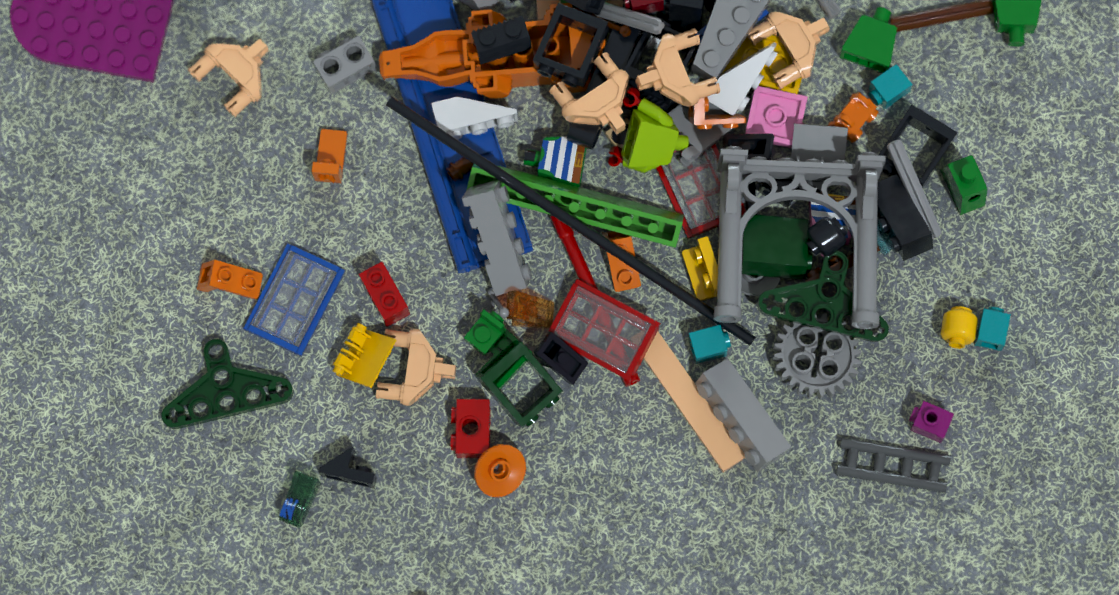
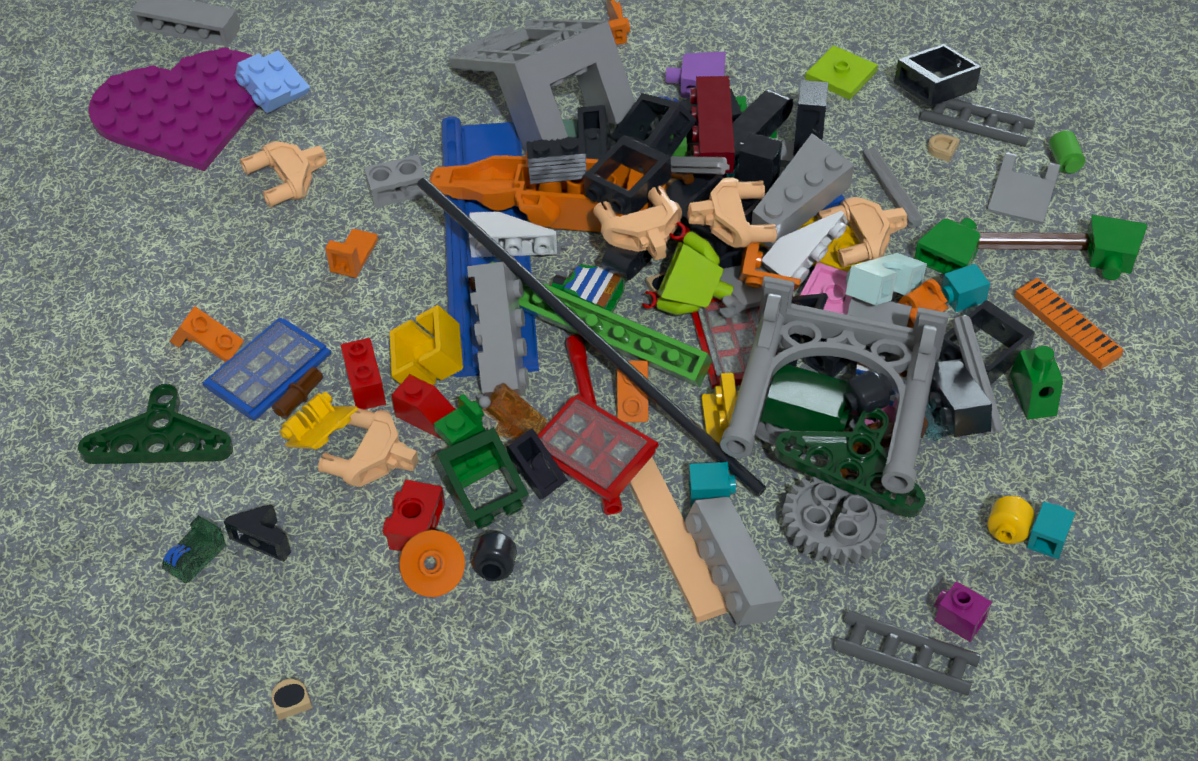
camera: 10 degrees right, 25 degrees down
(331, 321) = (297, 393): none -> reddish brown axle
(435, 267) = (426, 356): none -> yellow piece
(447, 316) = (420, 404): none -> red slope
(548, 452) = (494, 556): none -> black head
(813, 109) = (878, 278): none -> light aqua arch
(984, 104) = (1069, 323): none -> orange tile

